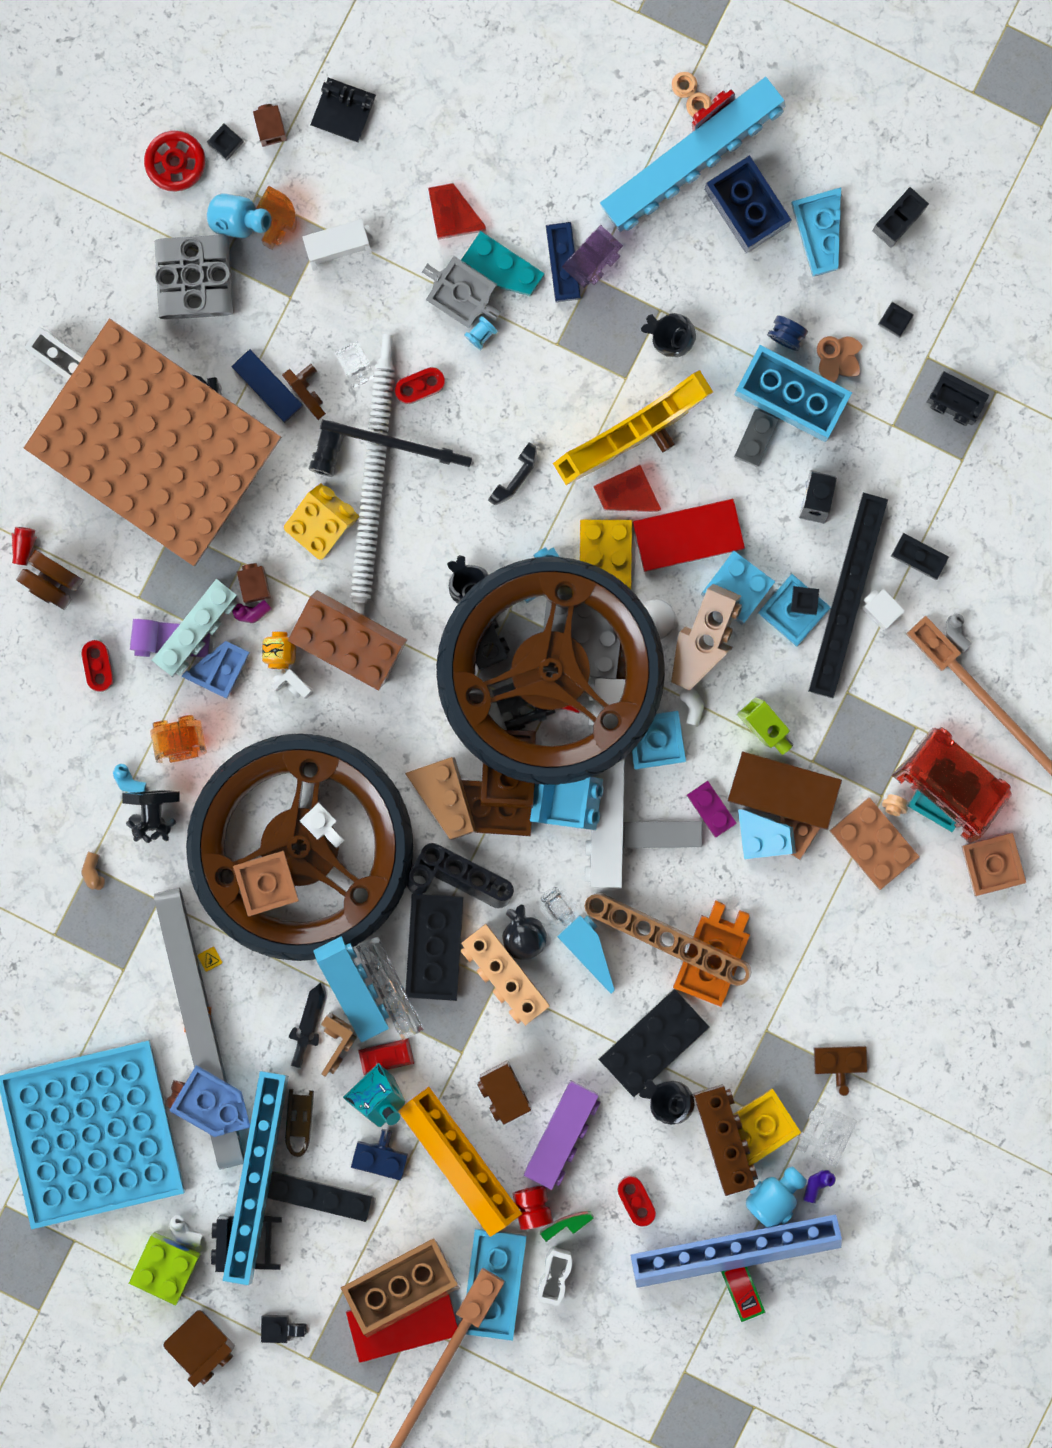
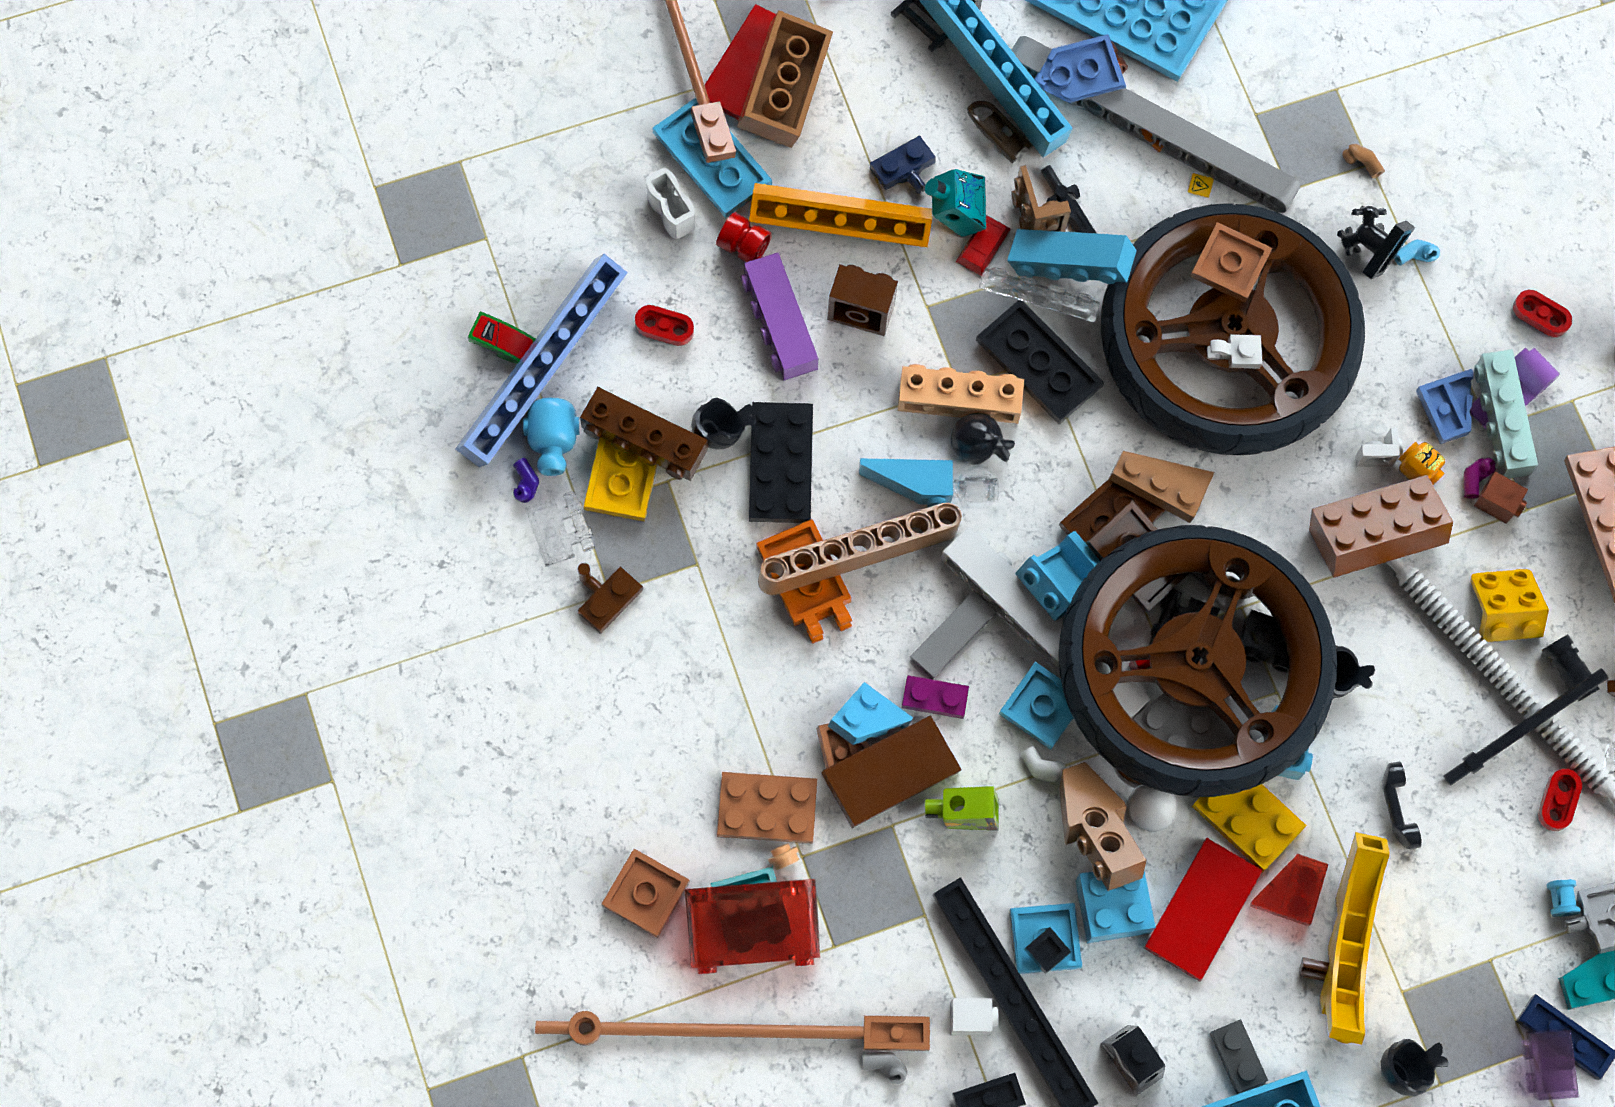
camera: 130 degrees right, 15 degrees down
(178, 739) = (1418, 314): clear orange brick -> none
(319, 1196) = (919, 93): black plate -> none
(461, 881) = (1077, 432): black beam -> none
(572, 1221) = (701, 256): green slope -> none

